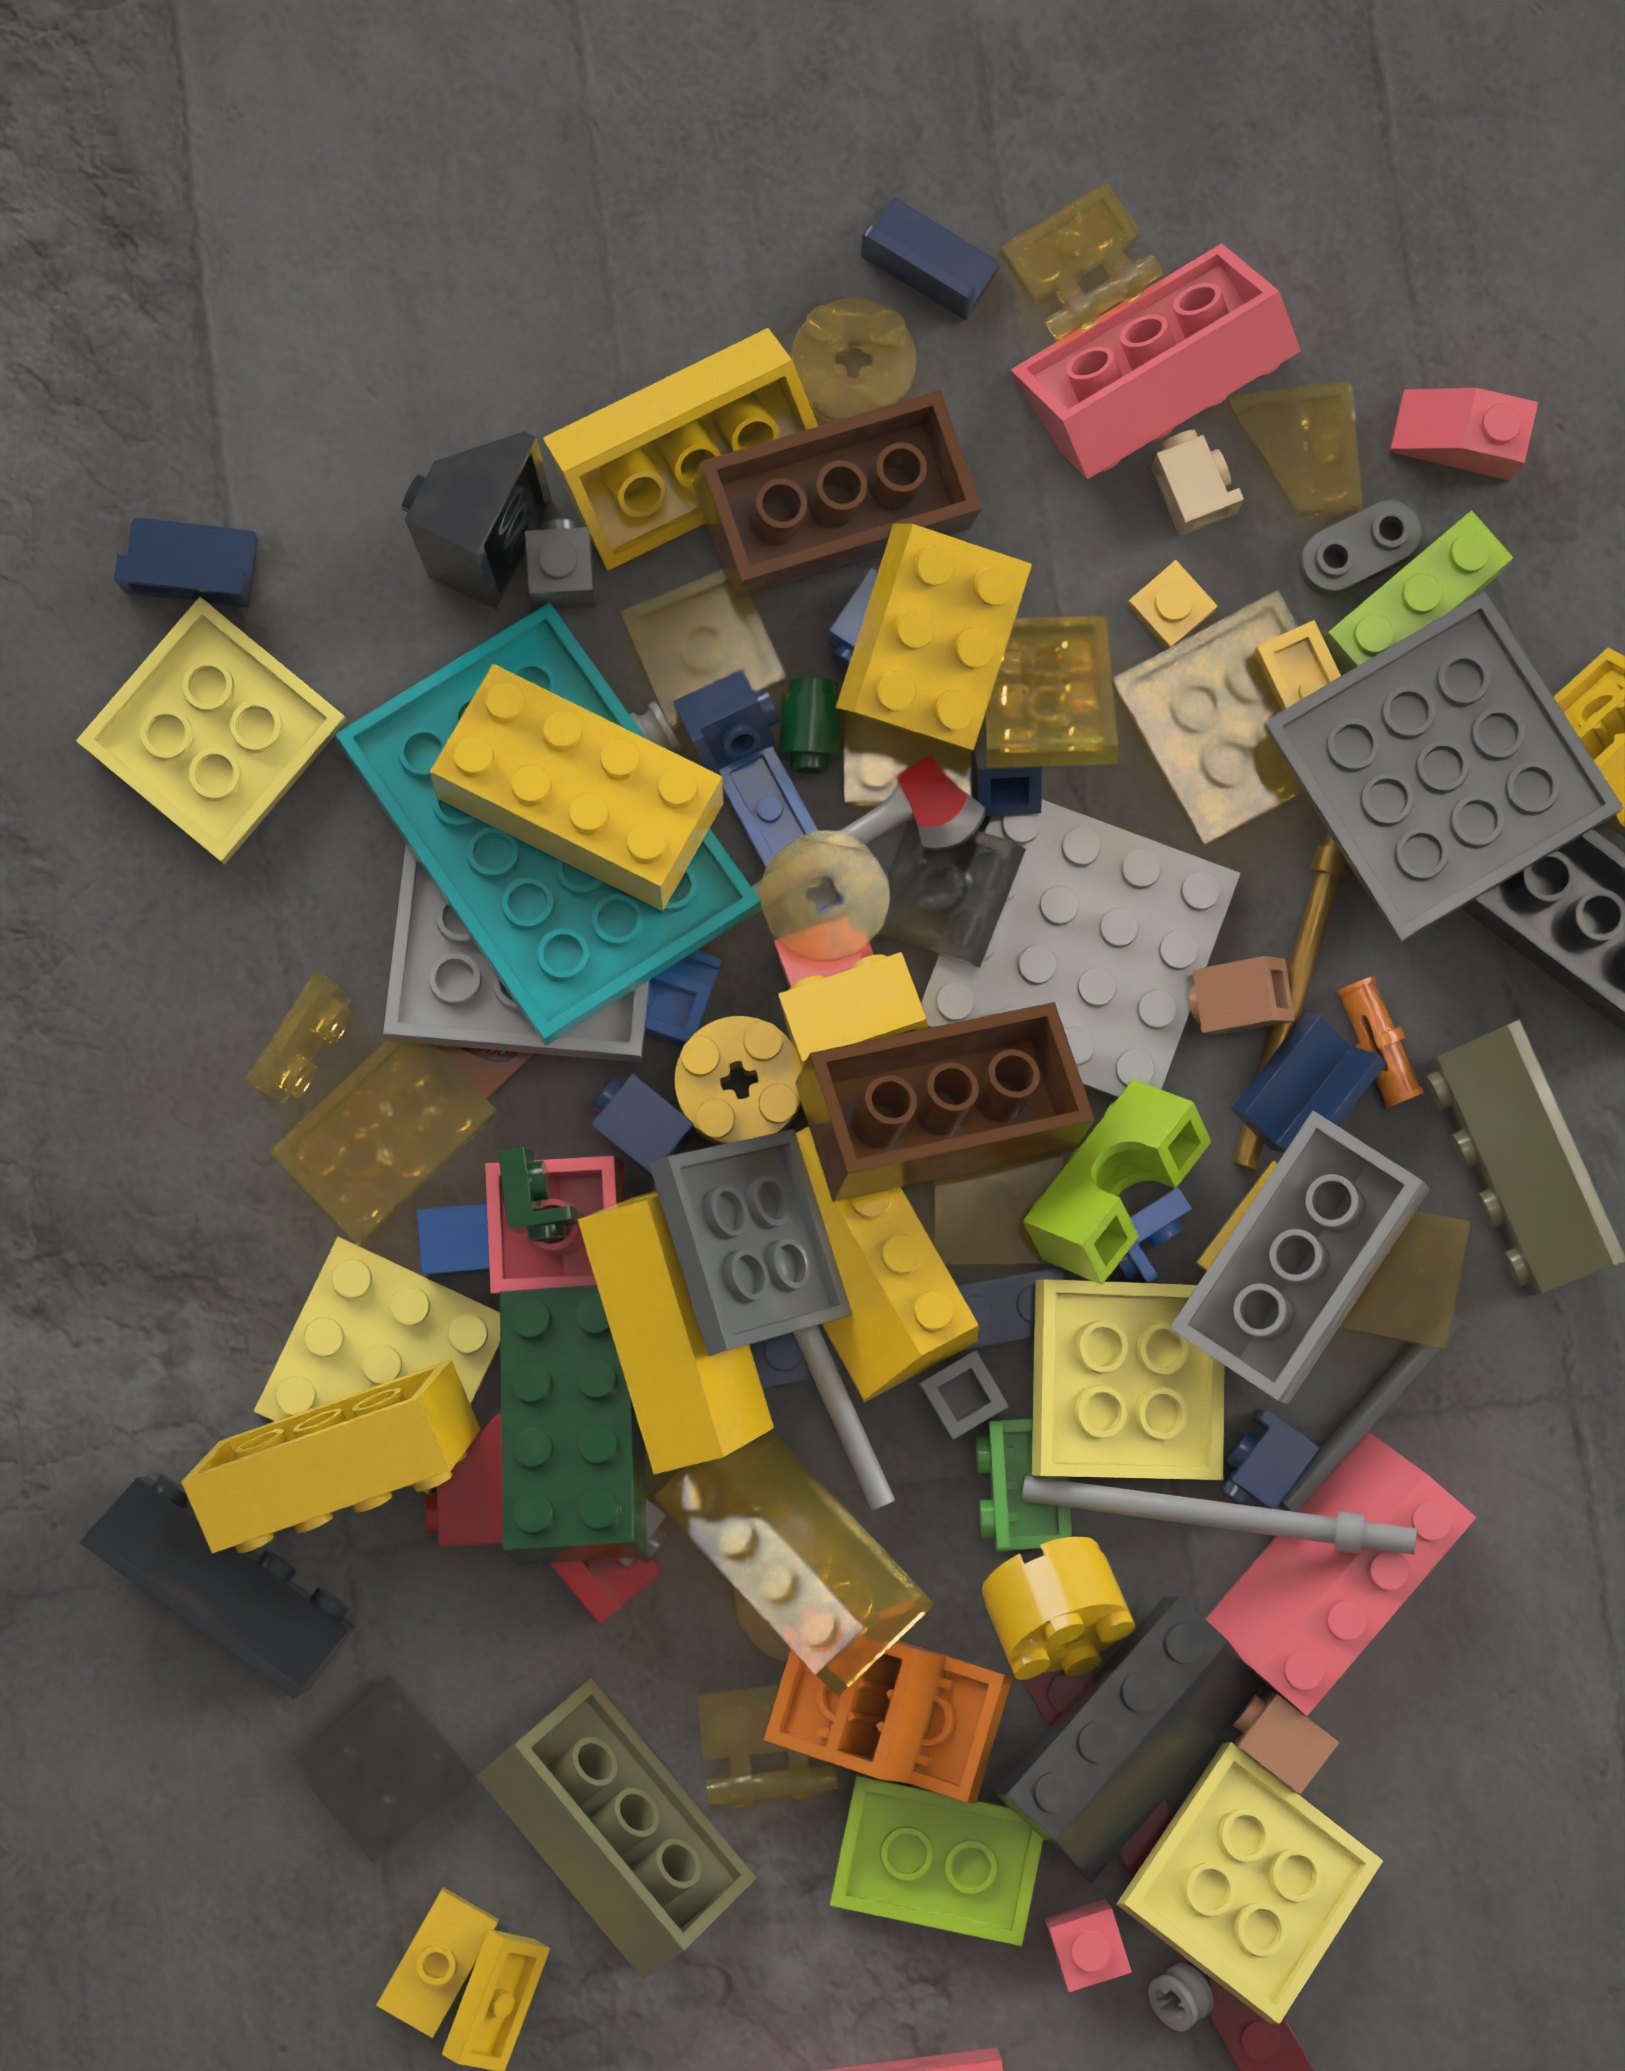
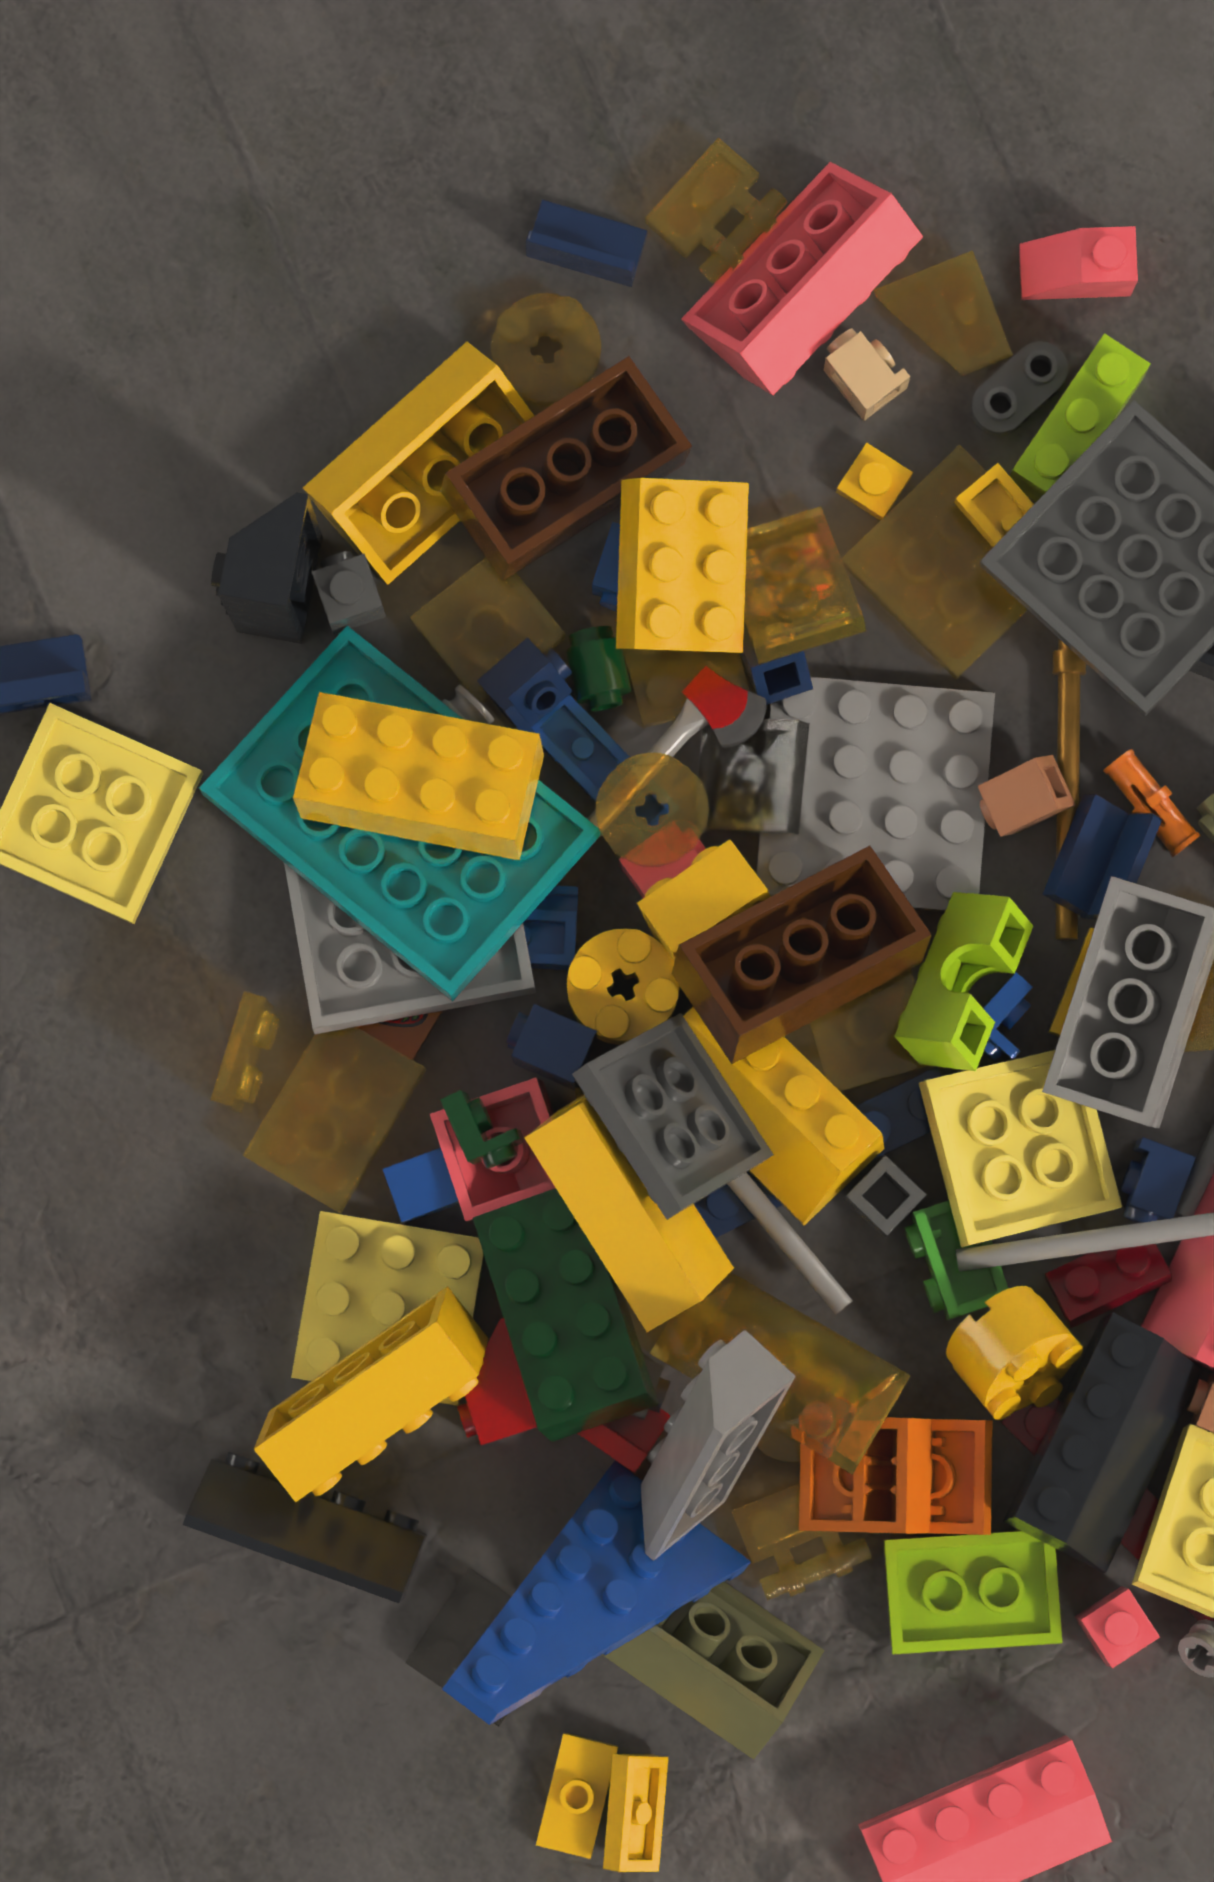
camera: 10 degrees left, 0 degrees up
(521, 1741) = (587, 1599): none -> blue wing
(691, 1611) = (710, 1438): none -> light grey slope
(1182, 1556) = (1106, 1280): none -> dark red plate

